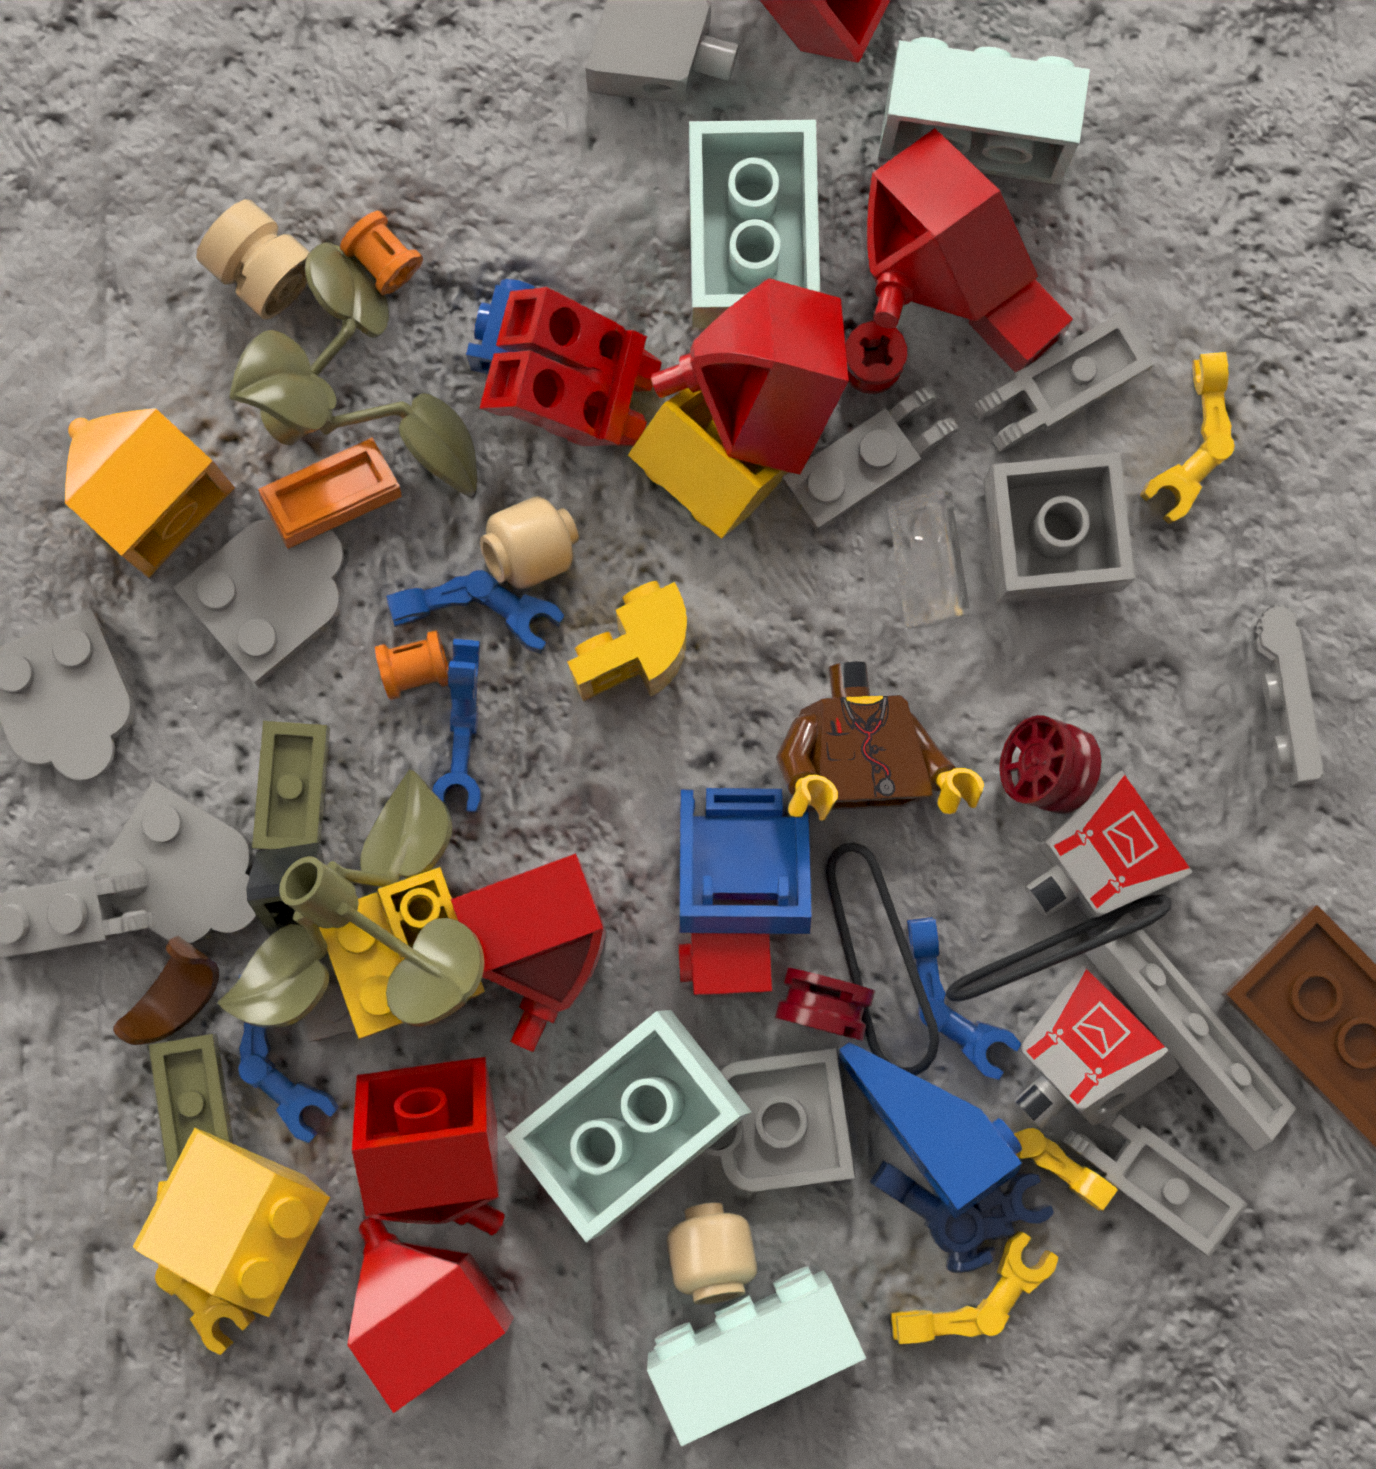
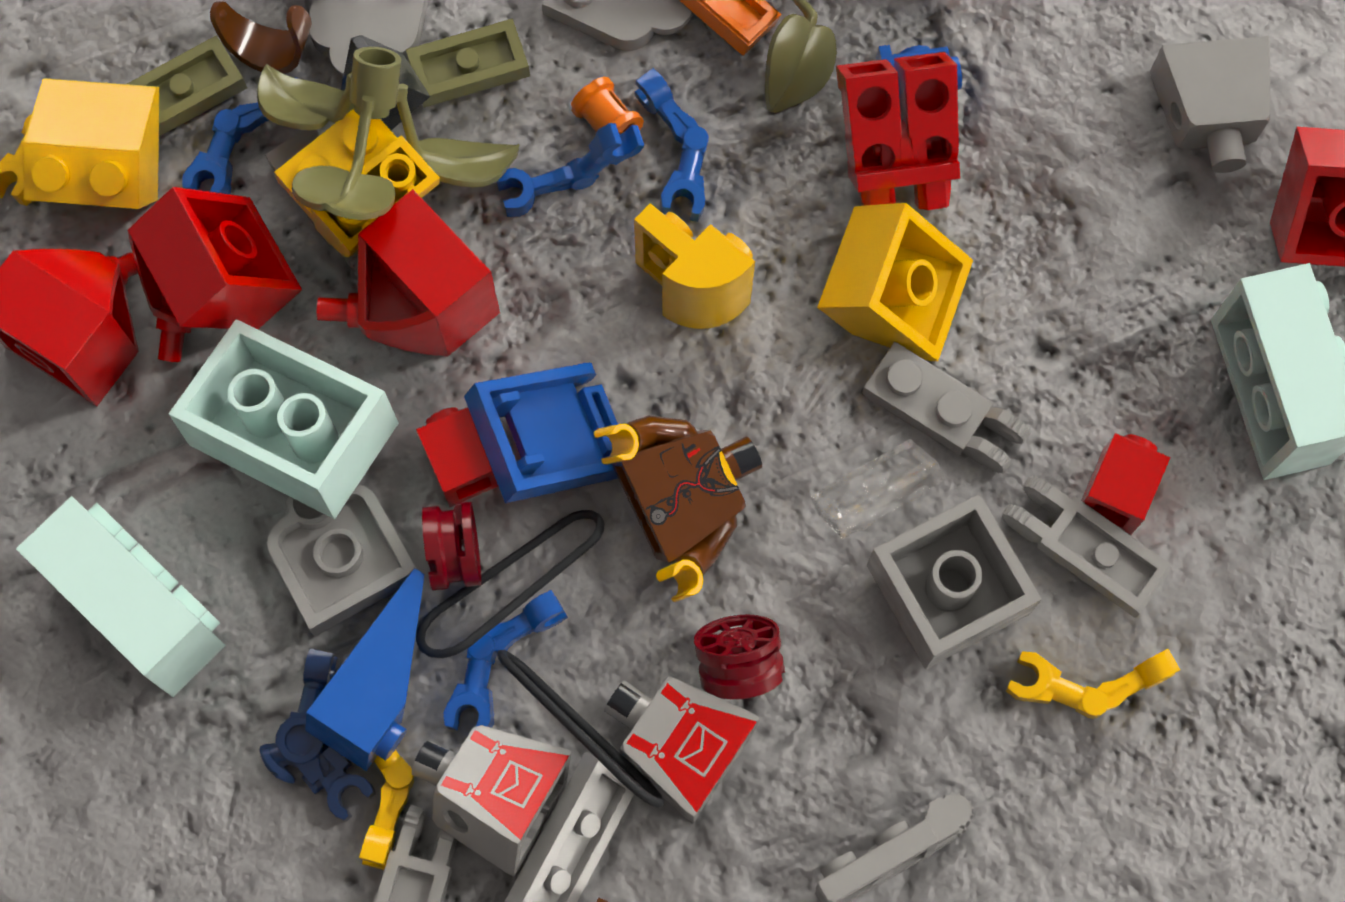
camera: 70 degrees right, 10 degrees down
(529, 543) = (747, 161): tan head -> none
(711, 1254) = (201, 537): tan head -> none
(751, 210) = (1098, 227): light aqua brick -> none
(768, 373) = (970, 270): red piece -> none
(868, 368) = (1026, 388): red wheel -> none
(941, 235) = (1156, 372): red piece -> none
(991, 1313) = (223, 785): yellow piece -> none

